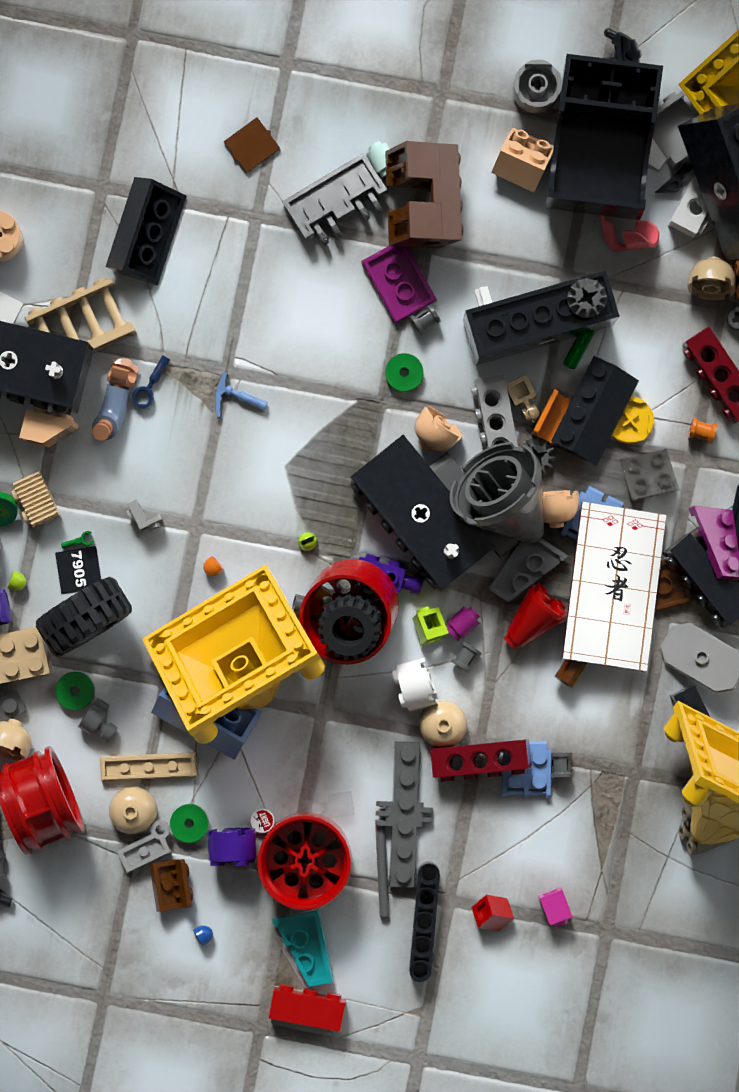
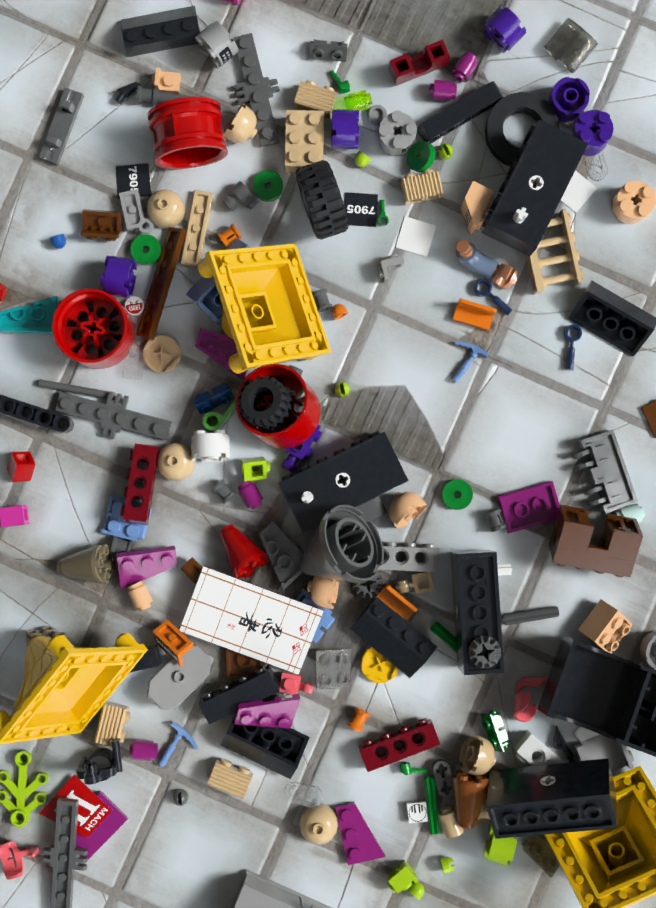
camera: 95 degrees right, 0 degrees up
(57, 966) = (61, 126): none -> dark grey hinge
(97, 493) = (415, 236): none -> white sticker
(103, 860) = (134, 177): none -> black sticker
(149, 723) = (229, 235): none -> orange bush
(179, 401) = (473, 314): none -> orange panel
(196, 272) = (571, 350): none -> dark blue piece
(203, 590) = (322, 300): none -> dark grey bush
(227, 793) = (161, 283): none -> reddish brown plate
(292, 702) = (218, 348): none -> magenta wing
(314, 773) = (162, 354): none -> tan tile
(362, 704) = (206, 403): none -> blue hinge
(383, 687) = (214, 421): none -> bright green door
(530, 251) = (531, 615): none -> dark grey axle
(576, 732) = (143, 564): none -> magenta wing
(593, 800) = (88, 565): none -> dark tan cone
(616, 729) = (139, 596): none -> light nougat brick
(662, 675) = (172, 641): none -> orange panel
(678, 521) = (292, 683): none -> coral plate
(685, 260) = (491, 723): none -> green hinge

